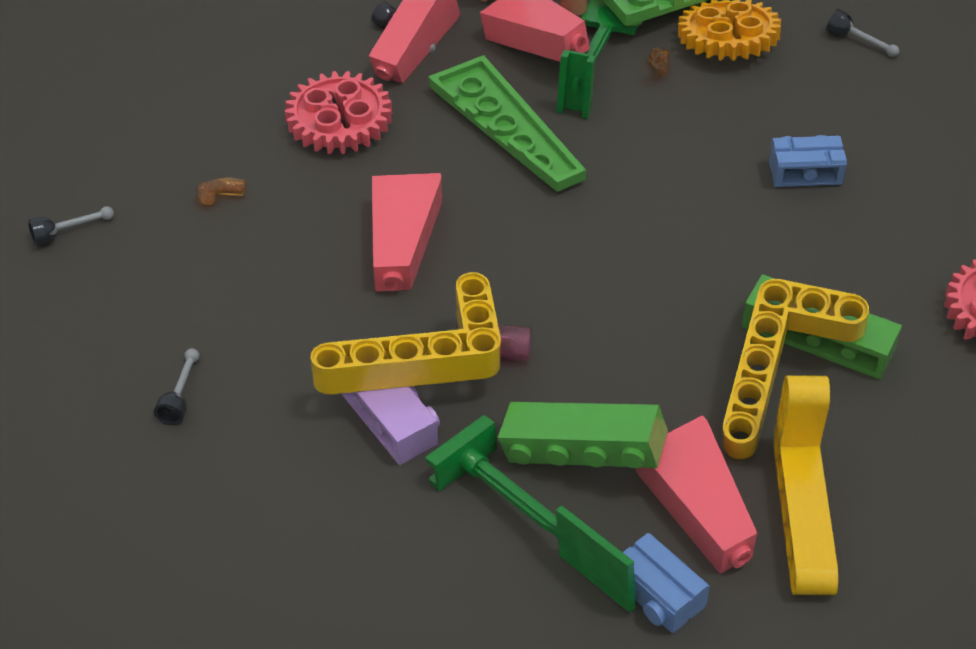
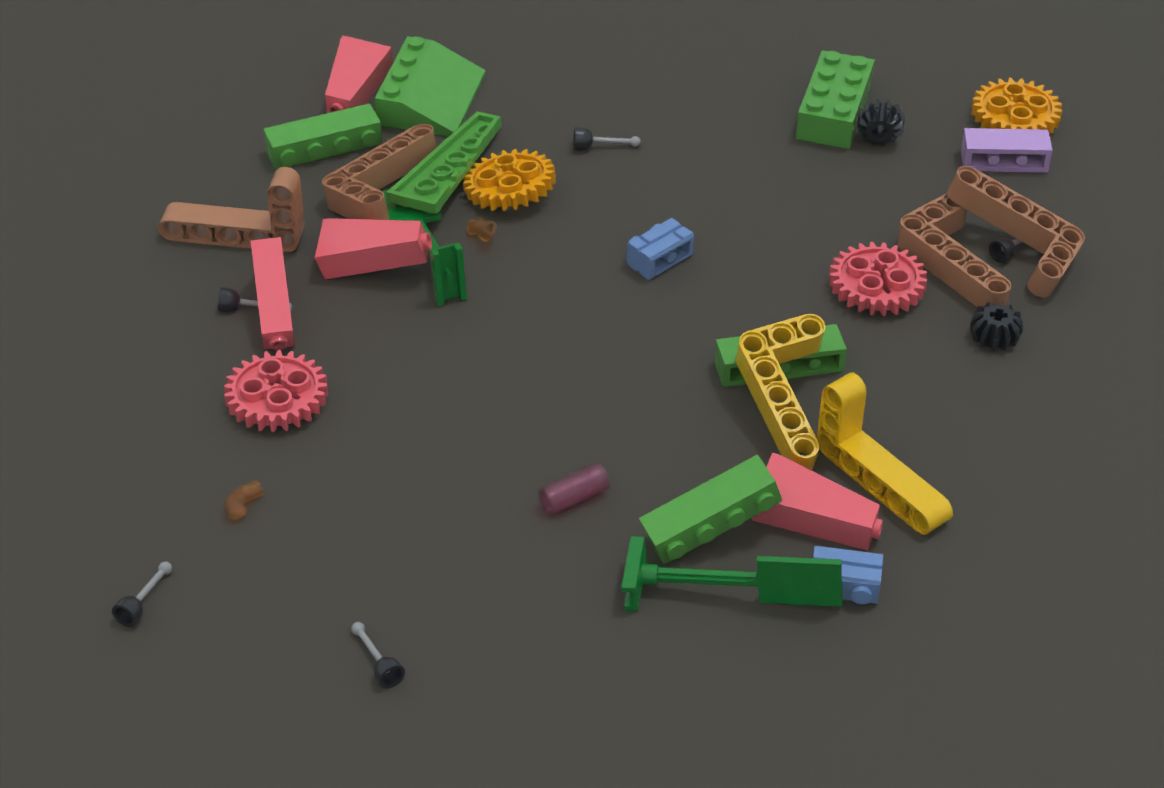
camera: 40 degrees left, 5 degrees down
(397, 420) = (547, 574): lavender brick -> none
(402, 224) = (420, 448): coral slope -> none
(420, 357) = (579, 500): yellow beam -> none
(501, 113) = (396, 325): bright green wing -> none

